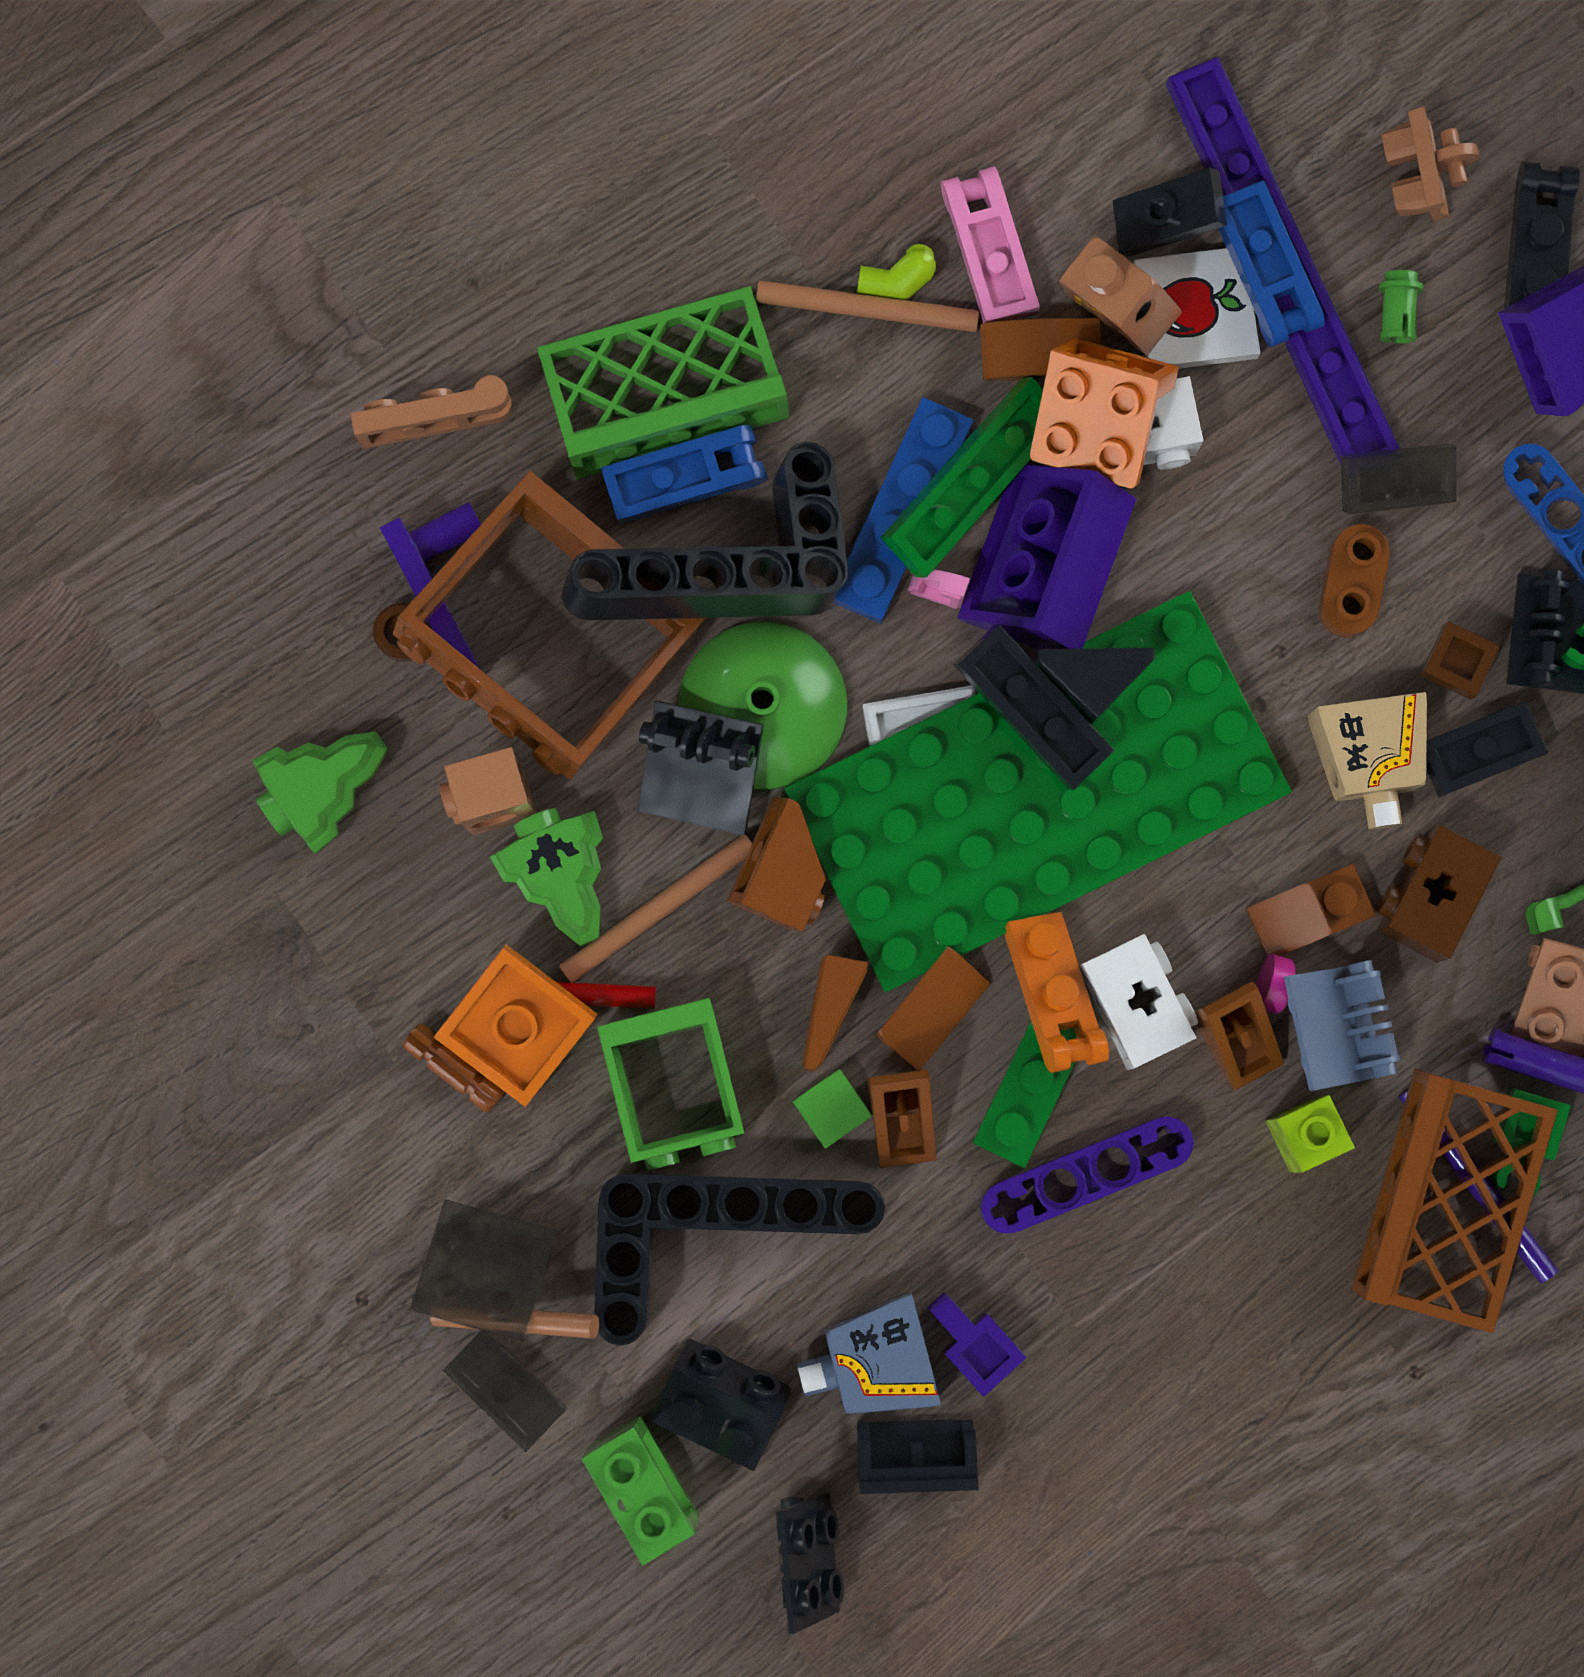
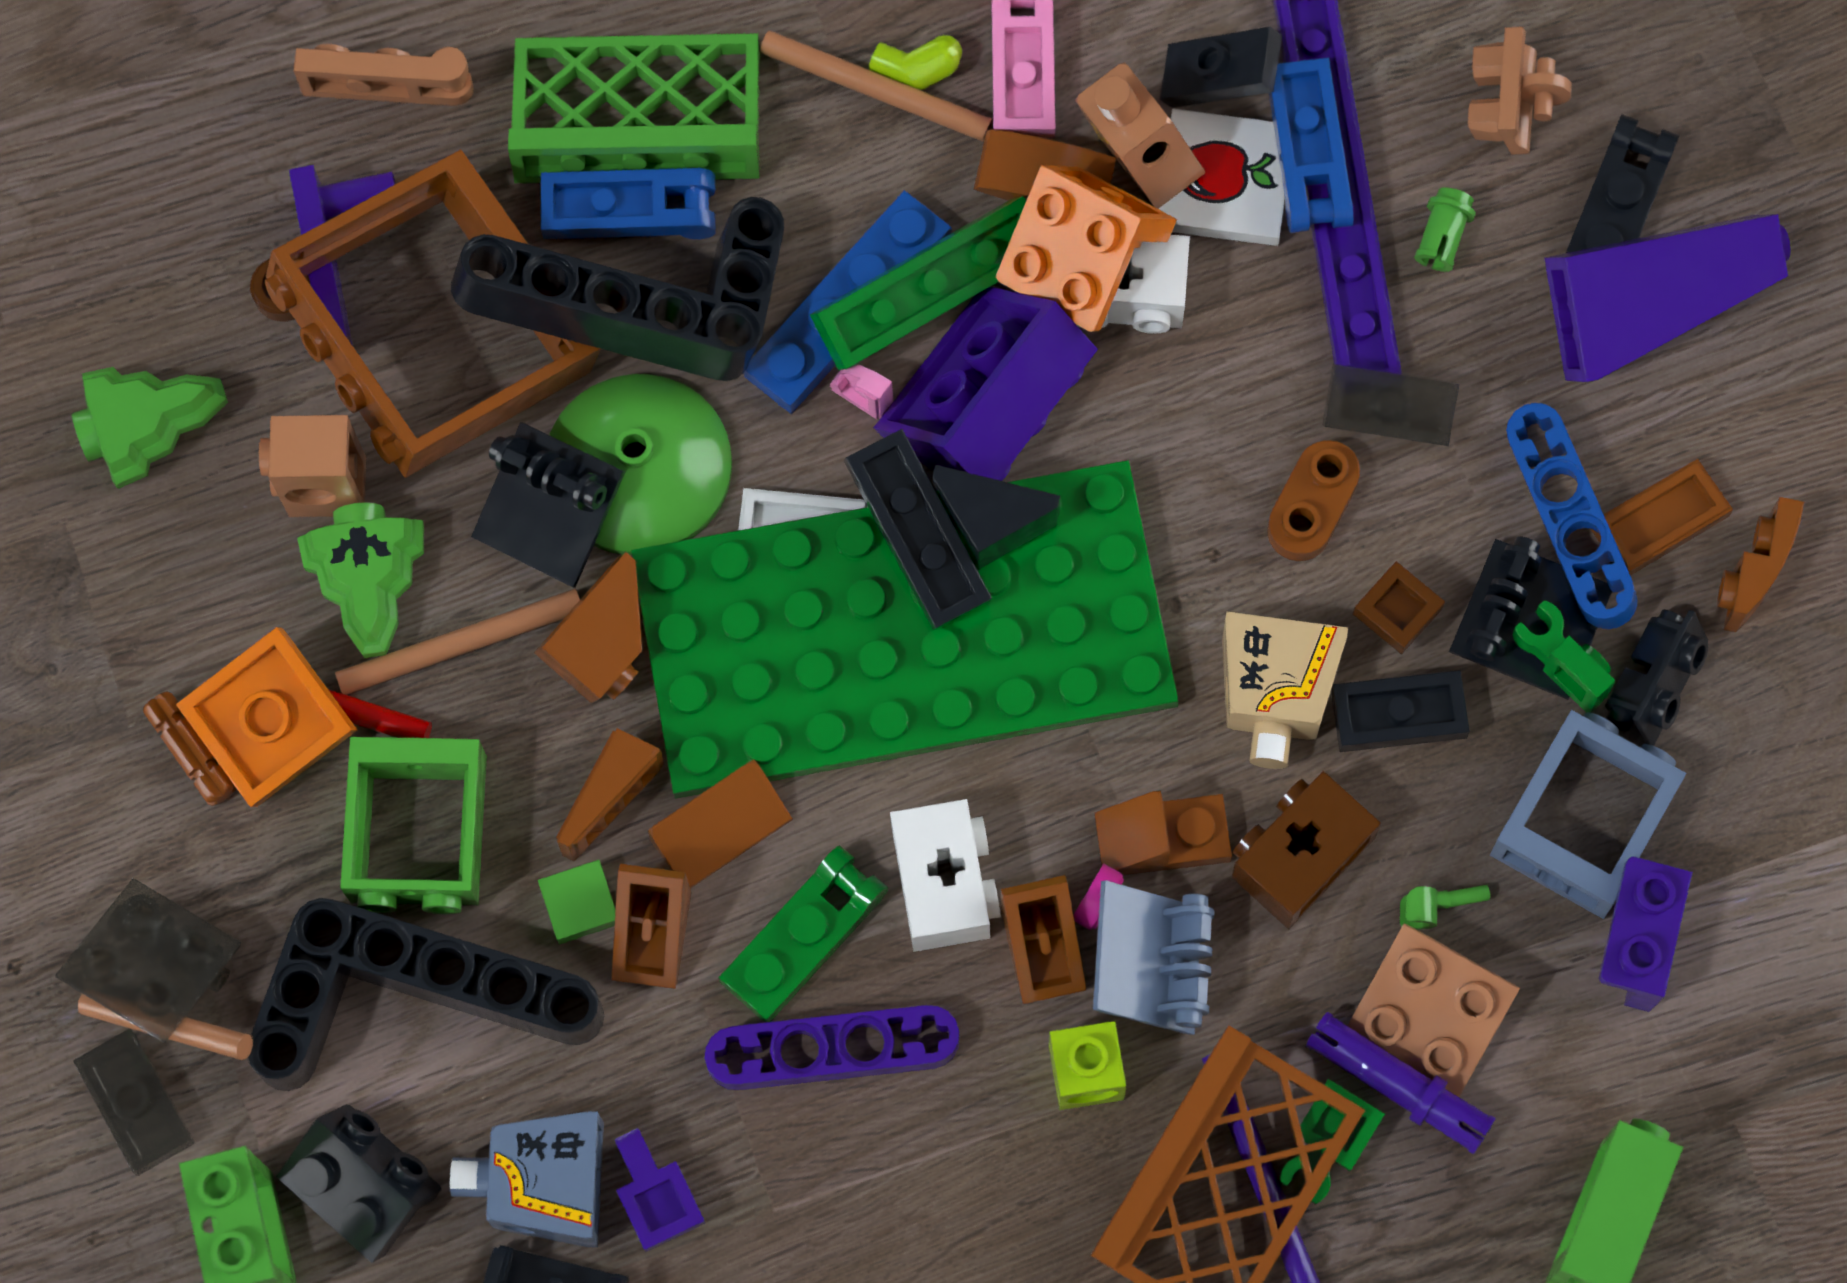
camera: 20 degrees right, 10 degrees down
(1055, 991) = (854, 837): orange plate -> none

